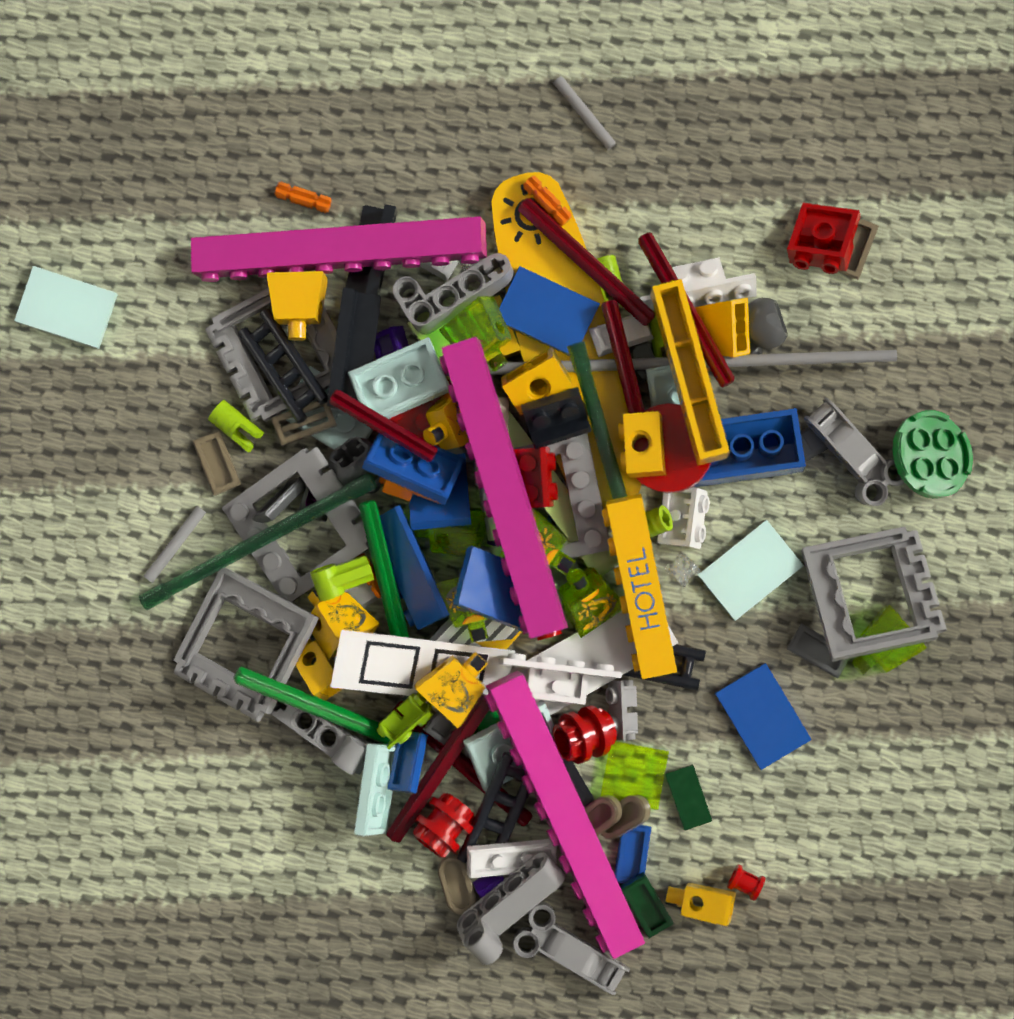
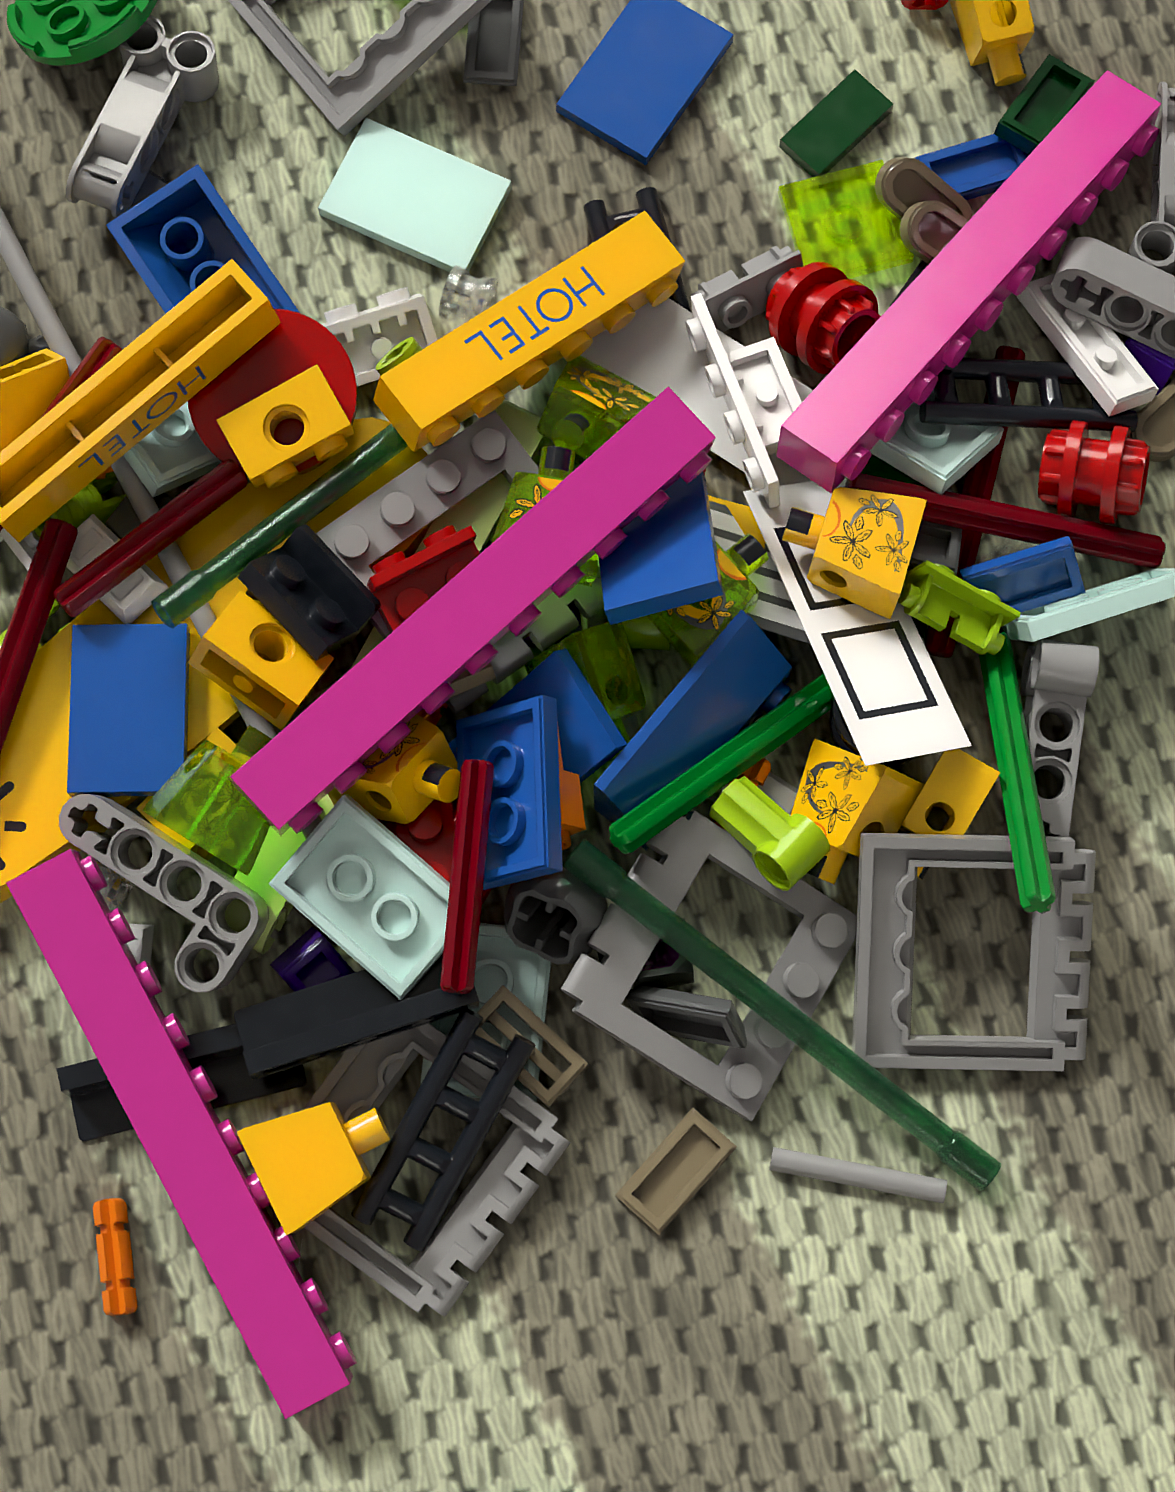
camera: 115 degrees left, 10 degrees down
(230, 420) = (587, 1180): lime hinge -> none

